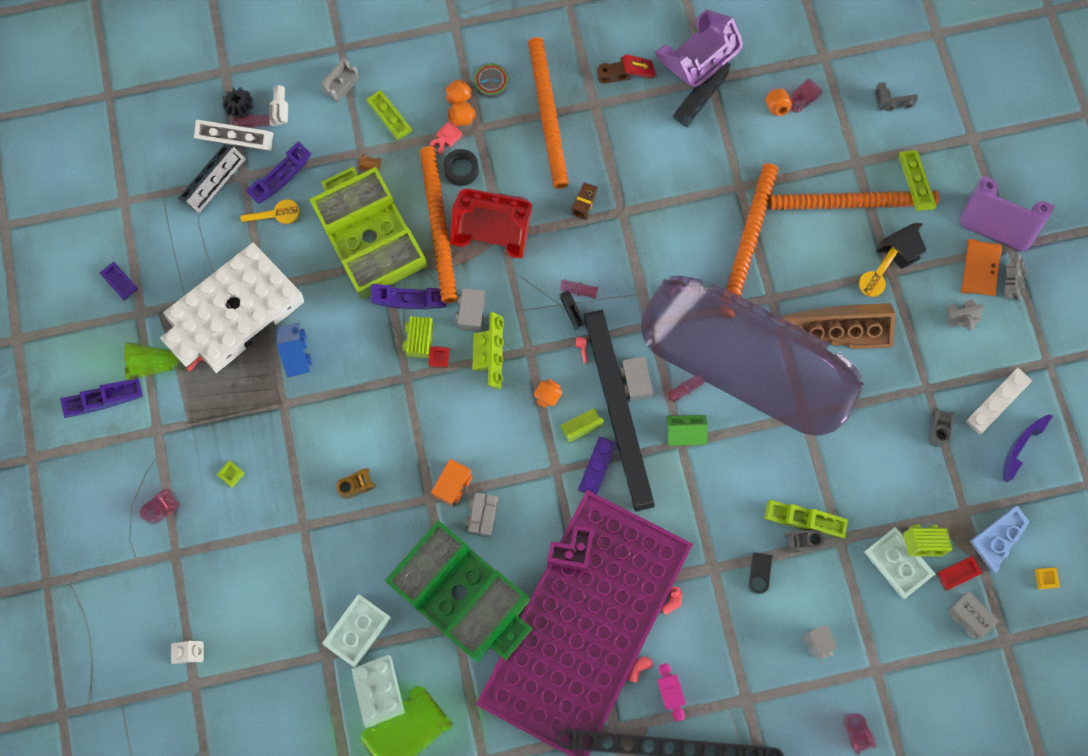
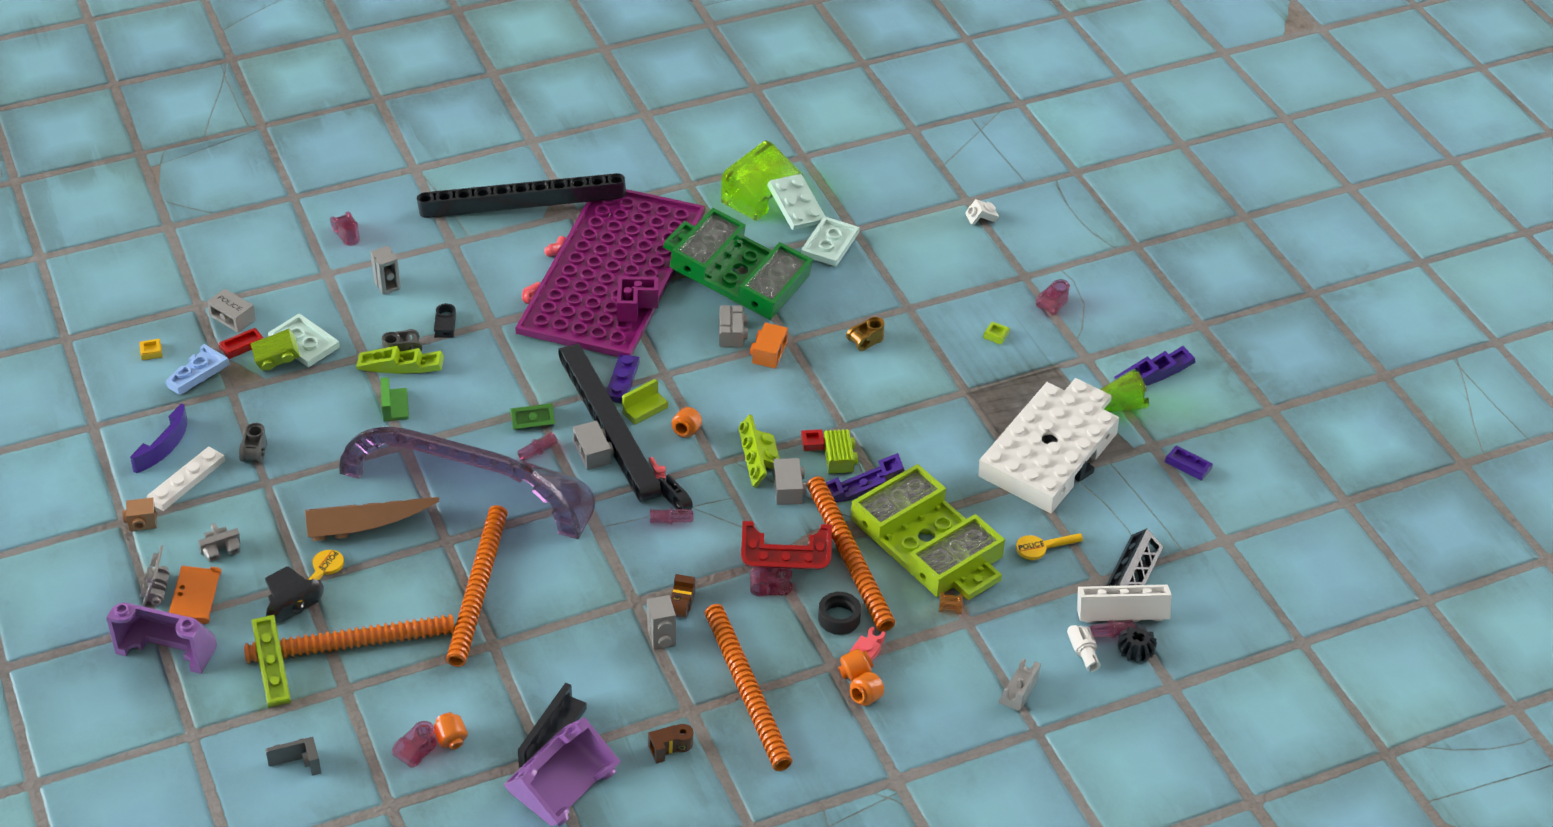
camera: 165 degrees right, 30 degrees down
(280, 175) = (1057, 578): dark purple slope -> none
(291, 346) = (973, 419): blue brick -> none
(389, 115) = (947, 662): lime tile -> none
(491, 80) = (829, 715): tile -> none
(606, 166) = (661, 622): none -> light grey brick
(638, 66) = (639, 742): red tile -> none
(671, 692) = (524, 232): dark pink piece -> none
(813, 467) = (393, 402): none -> bright green panel
(1035, 356) = (140, 514): none -> medium nougat brick

